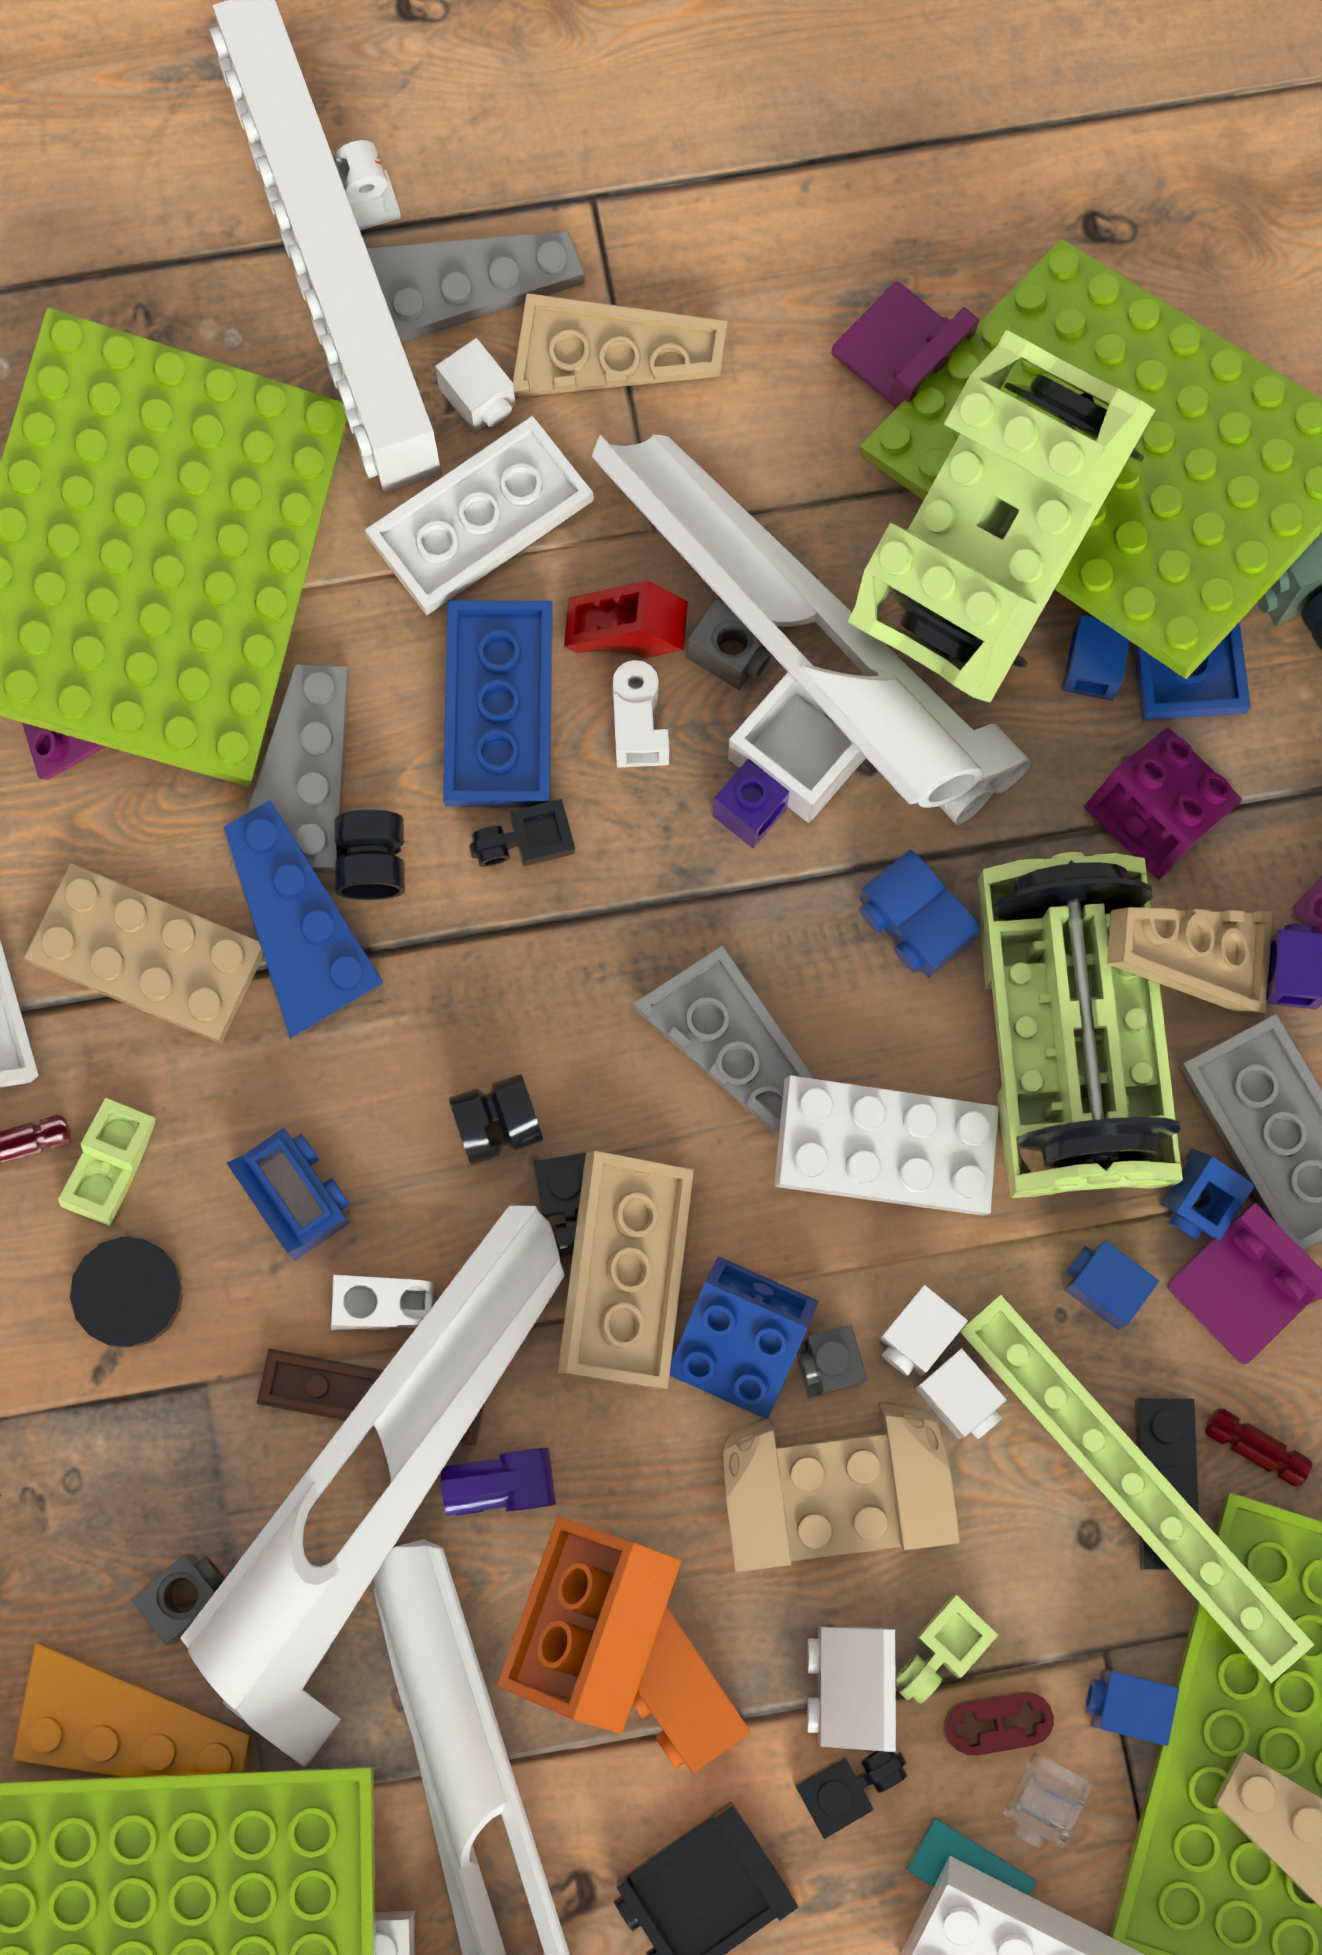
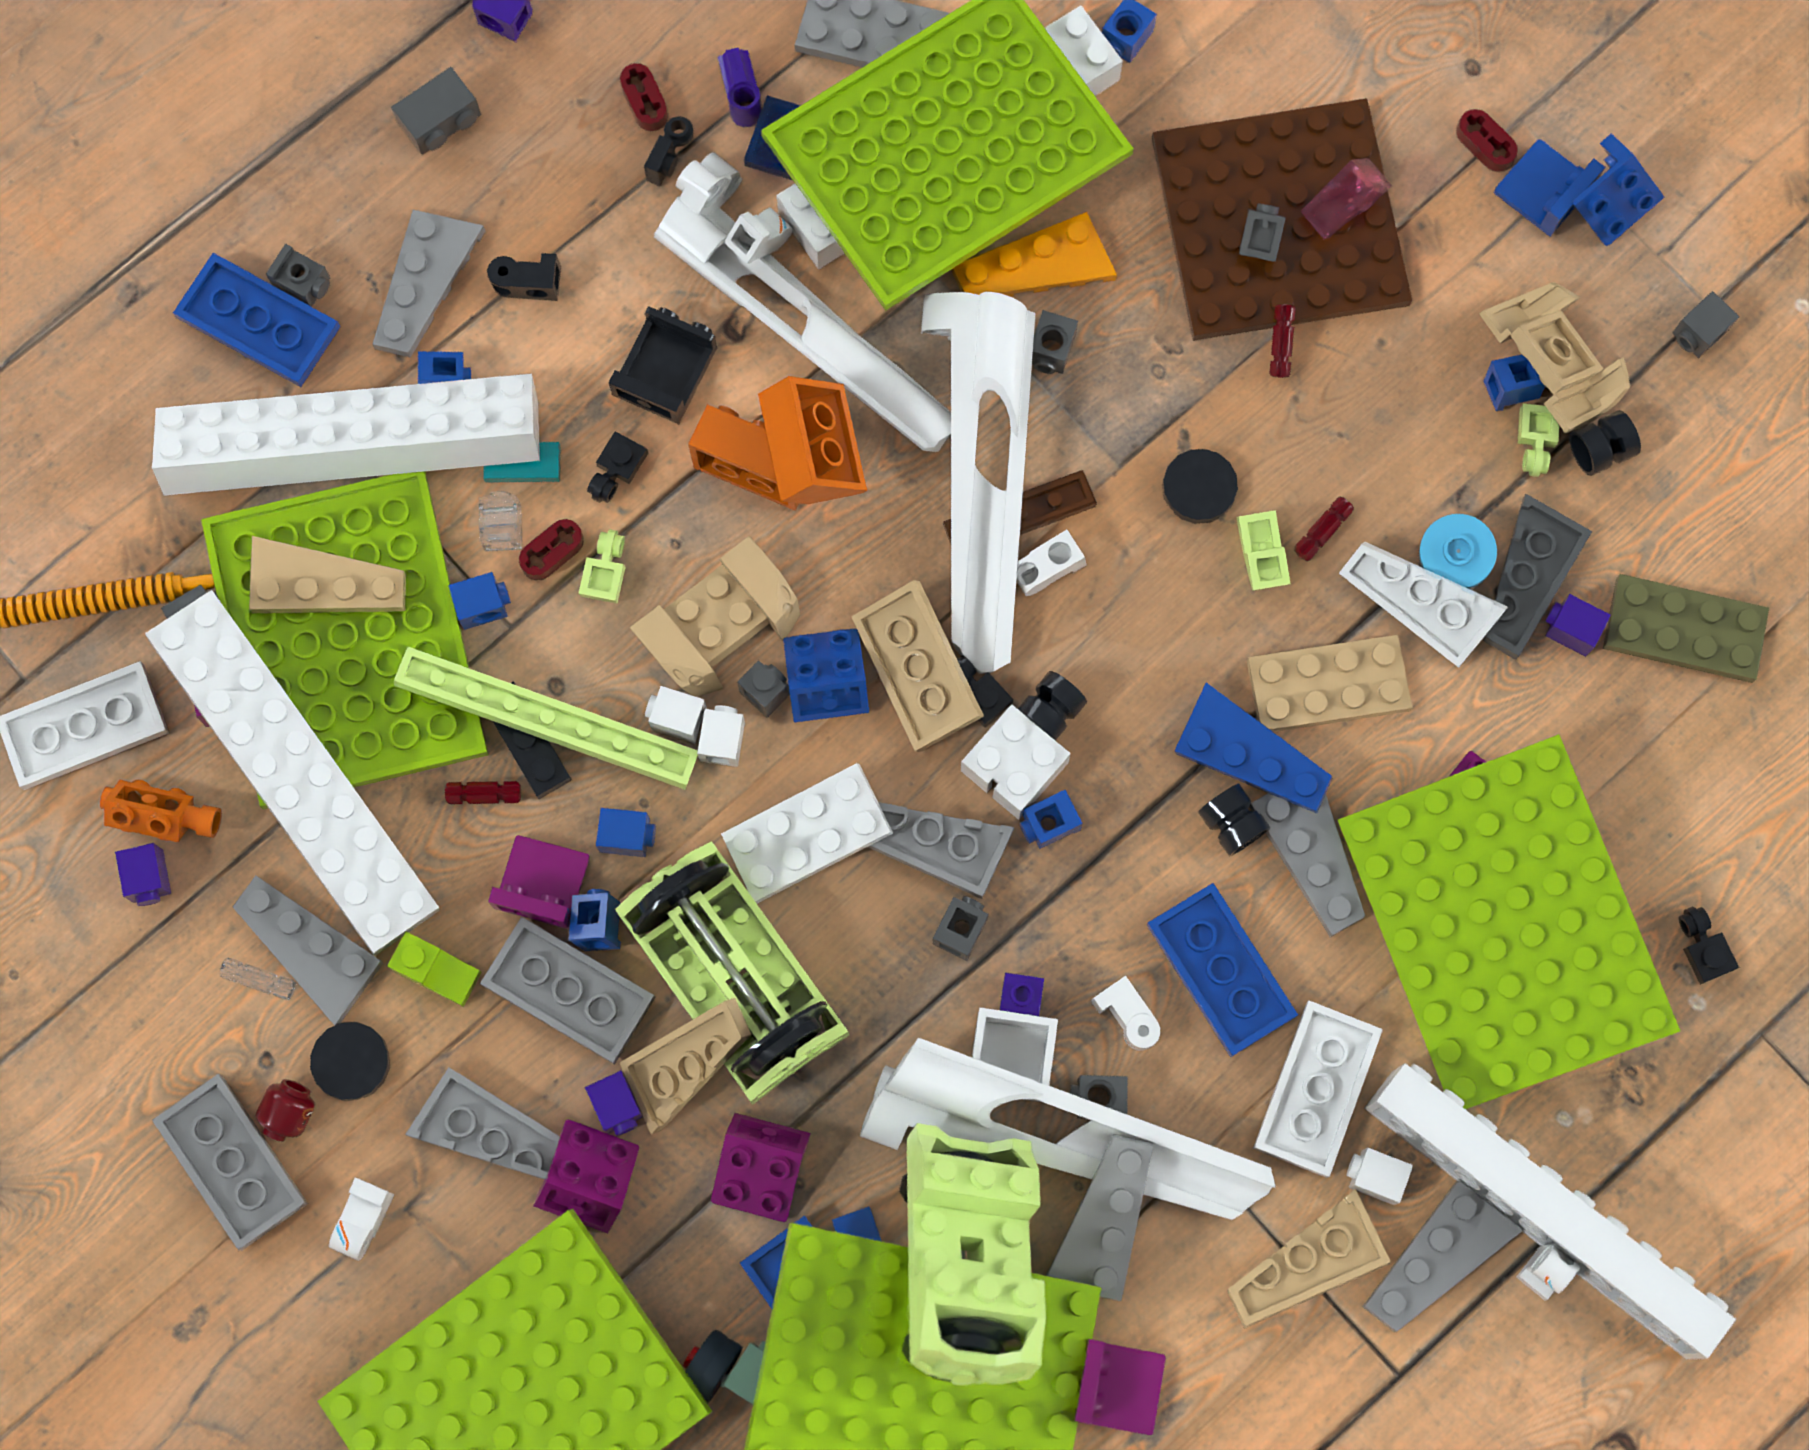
camera: 150 degrees right, 0 degrees up
(290, 1193) = (1143, 593): blue window -> none
(512, 1482) = (907, 514): dark purple piece -> none
(539, 834) = (1140, 900): black plate -> none
(572, 970) = (1057, 807): none -> blue brick
(582, 1079) = (1017, 758): none -> white piece
(627, 619) = (1175, 1071): red arch -> none
(776, 908) = (953, 942): none -> dark grey brick
(809, 510) = (1106, 1221): none -> light grey wing
(853, 1688) = (644, 514): white slope -> none
(918, 914) = (873, 992): blue brick -> none

